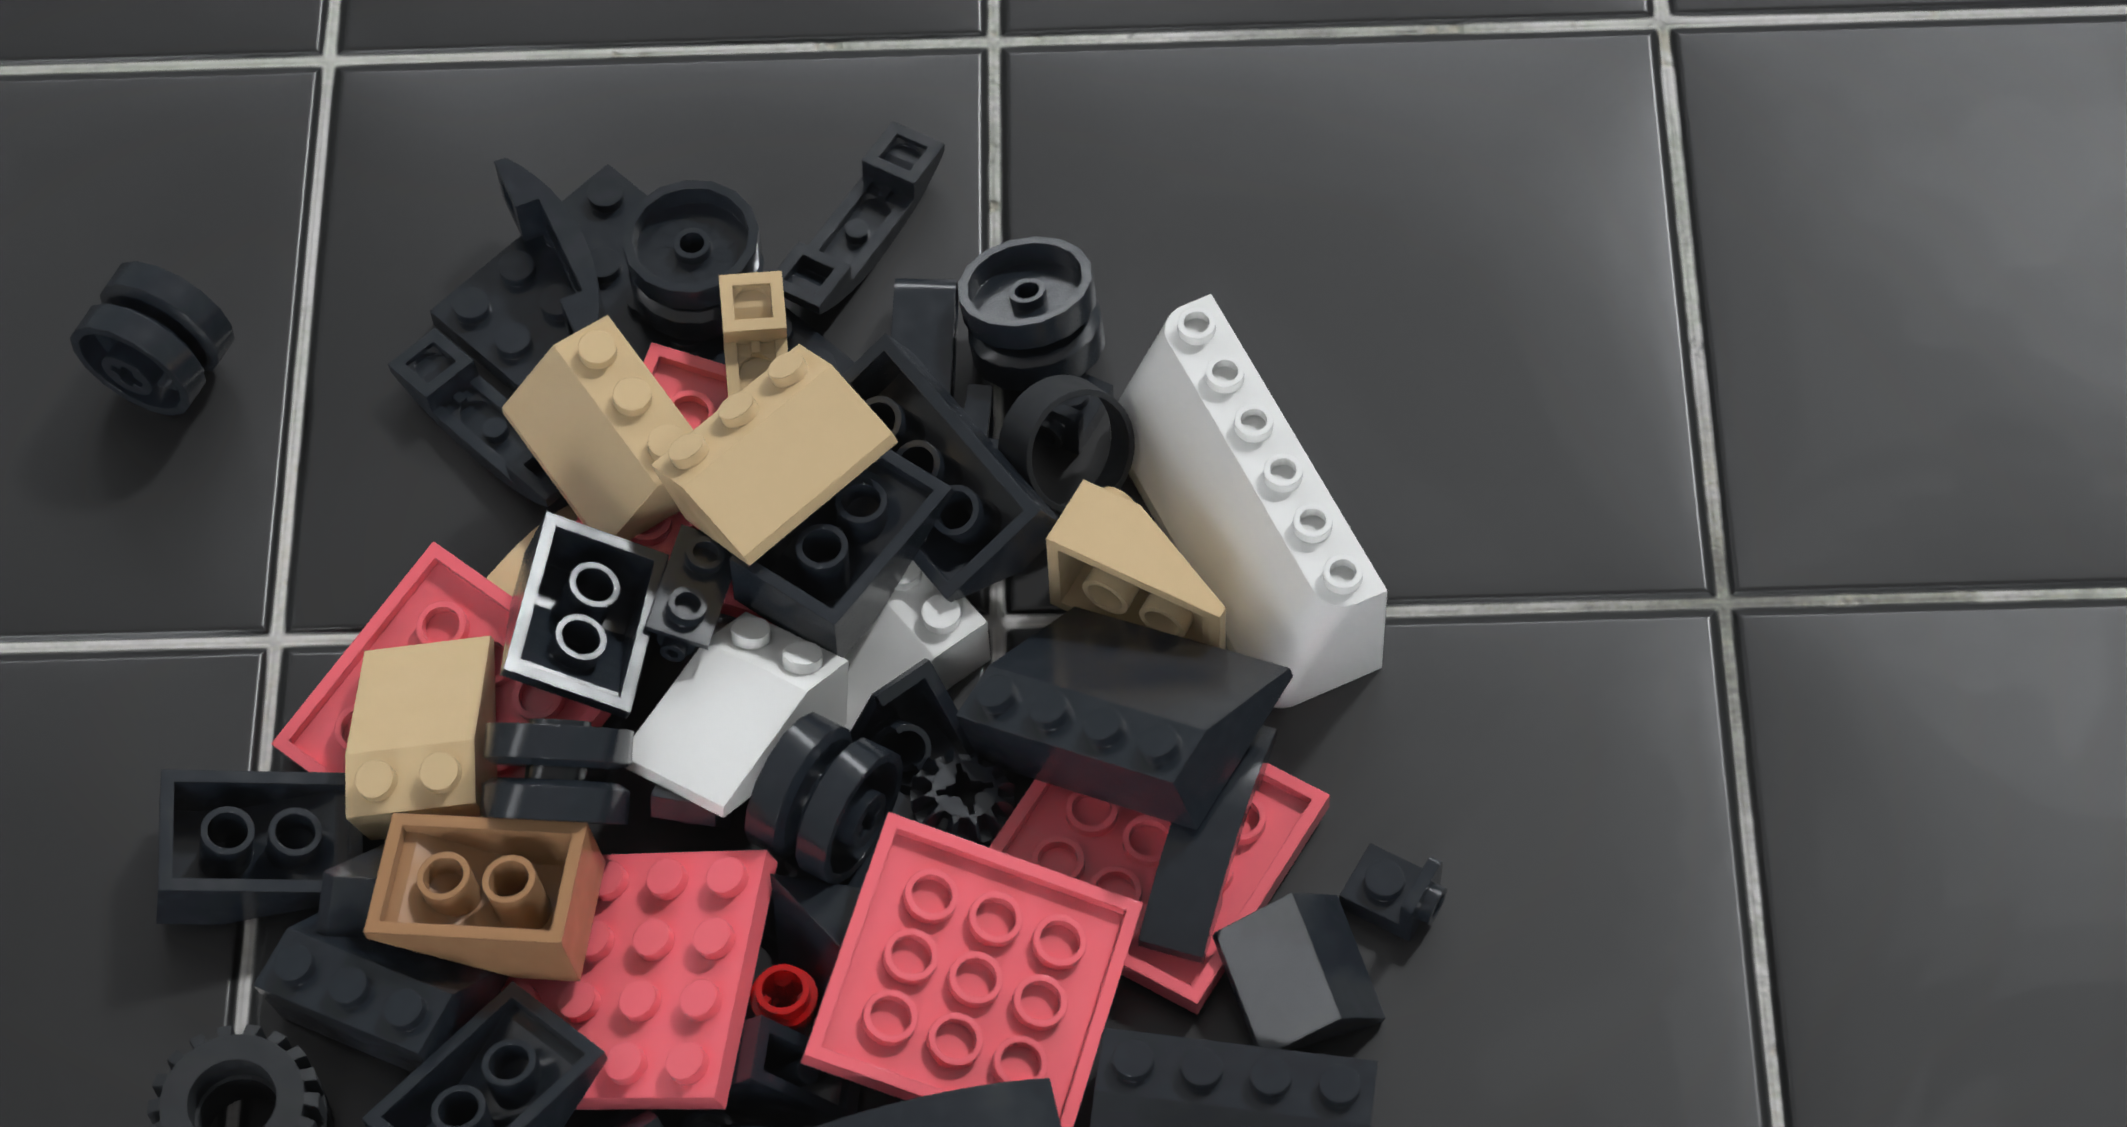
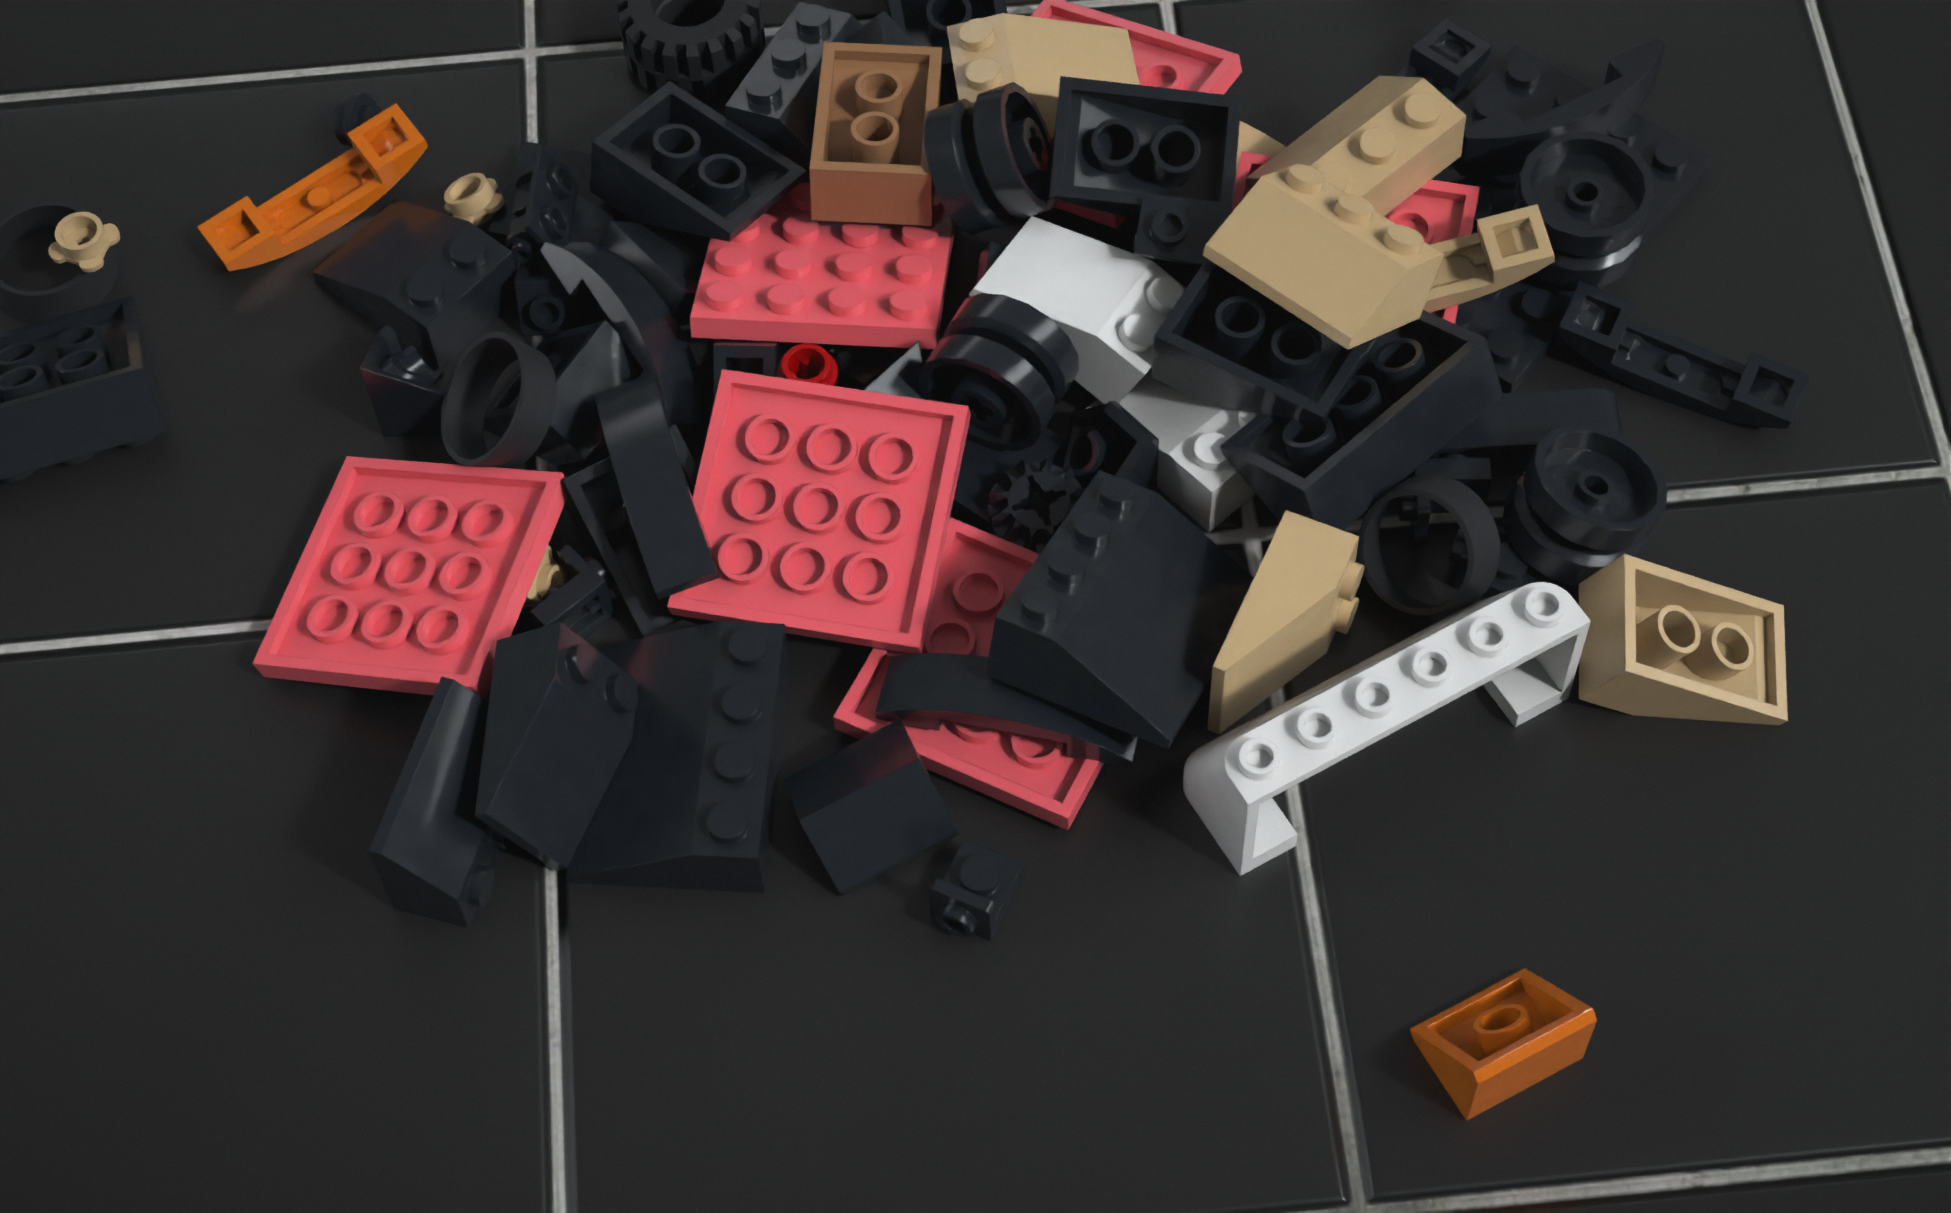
camera: 85 degrees right, 0 degrees up
(1173, 255) = (1681, 647): none -> tan slope
(1574, 459) = (1504, 1040): none -> orange slope

